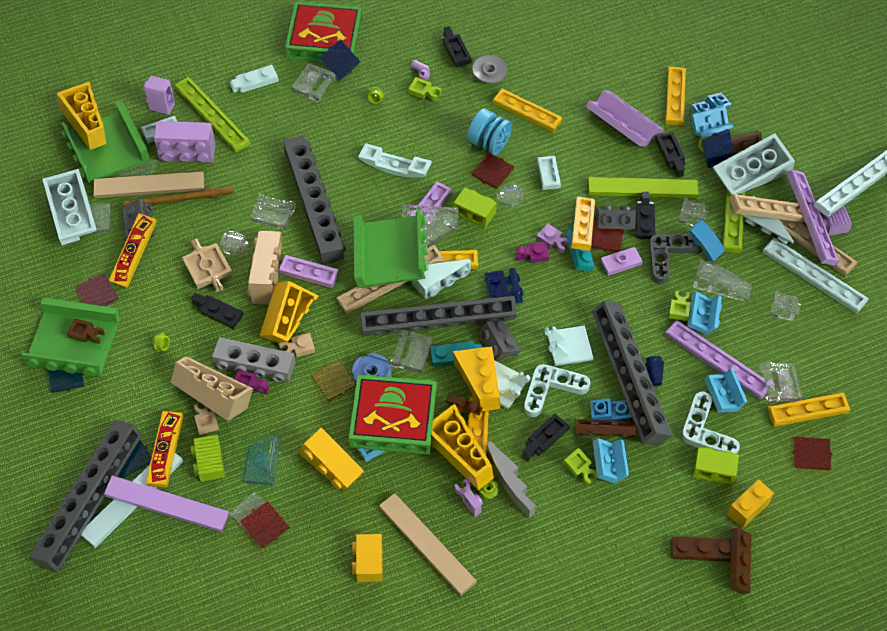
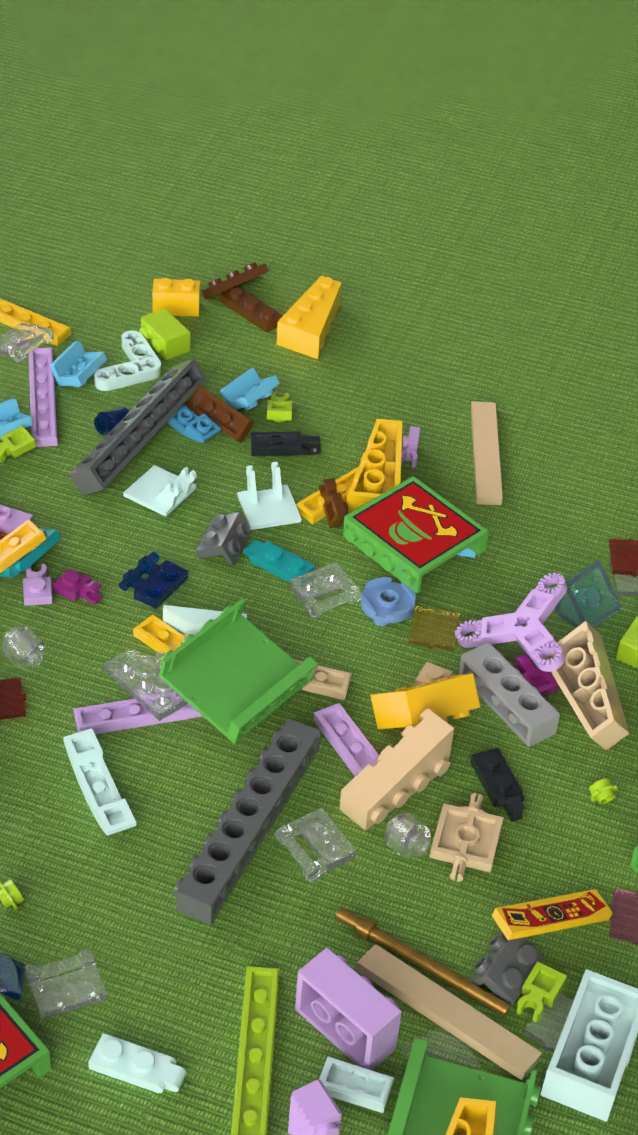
camera: 140 degrees left, 15 degrees down
(114, 219) = (541, 988): none -> lime plate
(205, 420) = (623, 673): tan plate -> none
(276, 407) = (507, 627): none -> lavender piece
(330, 460) = (520, 552): yellow wedge -> none
(368, 557) = (554, 469): yellow brick -> none
(438, 316) = (265, 587): dark grey brick -> none
(475, 207) = (77, 666): lime brick -> none
(480, 375) = (286, 507): yellow wedge -> none
(507, 474) = (356, 437): light grey slope -> none
(550, 379) = (218, 485): light aqua beam -> none
(648, 559) = (310, 318): none -> yellow wedge
(812, 453) = (70, 300): clear red piece -> none

